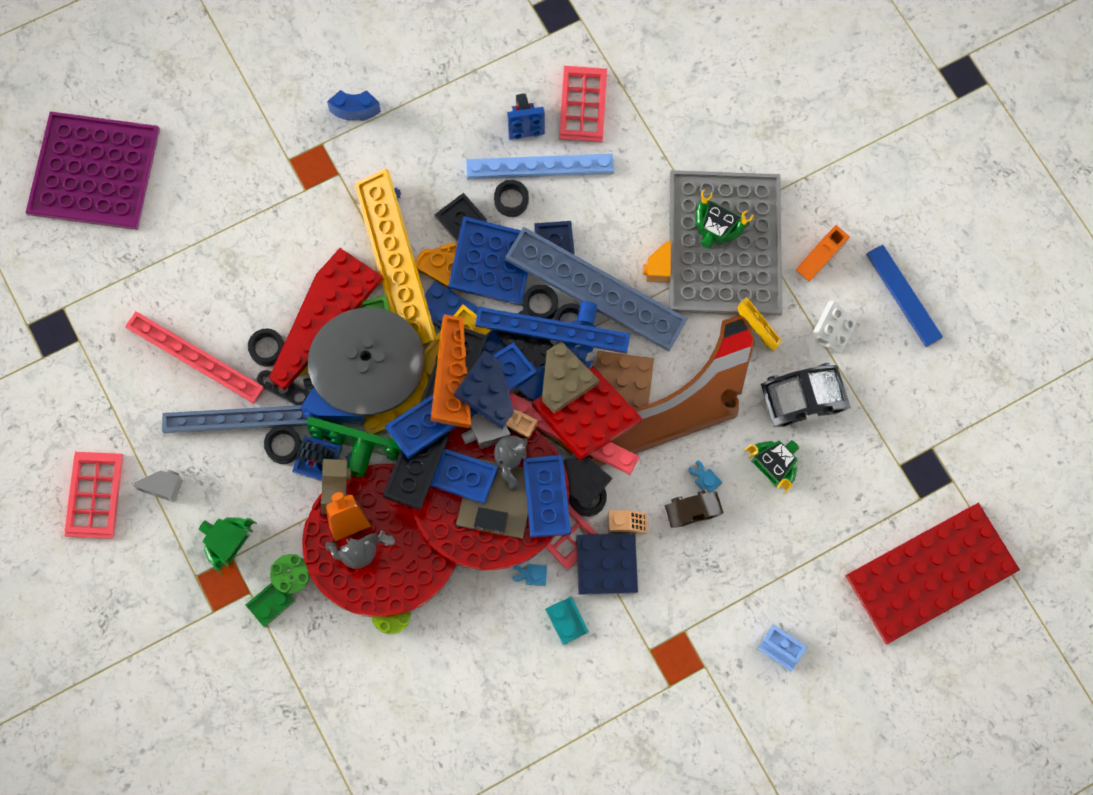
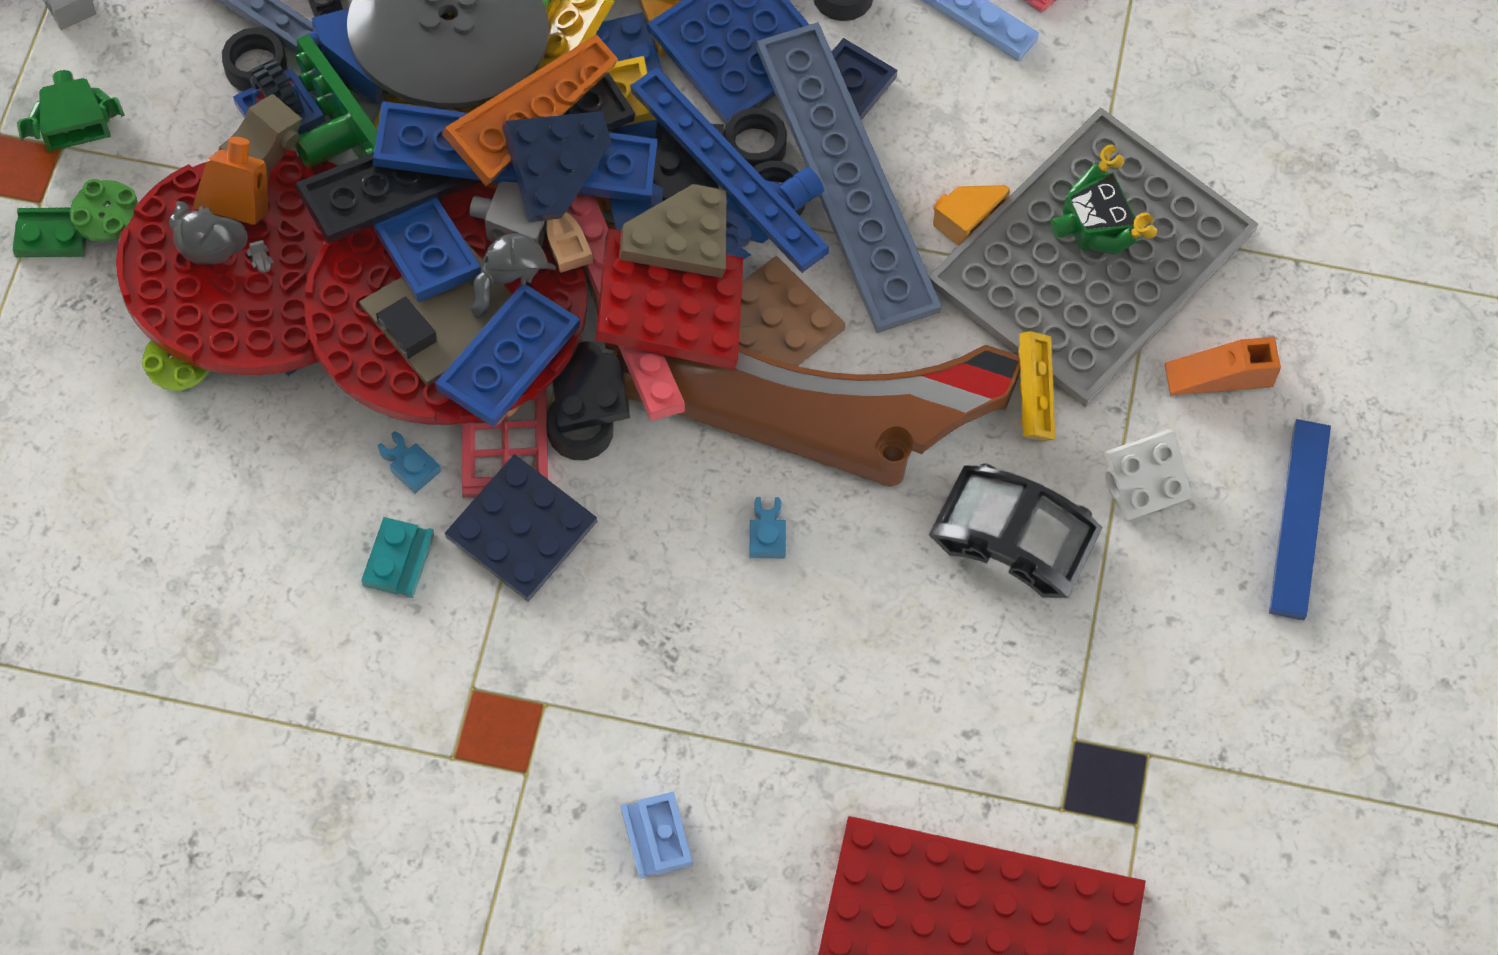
camera: 45 degrees right, 10 degrees down
(626, 522) = (601, 495): light nougat slope -> none
(693, 509) = (708, 551): dark brown brick -> none
(775, 461) = (887, 580): torso -> none

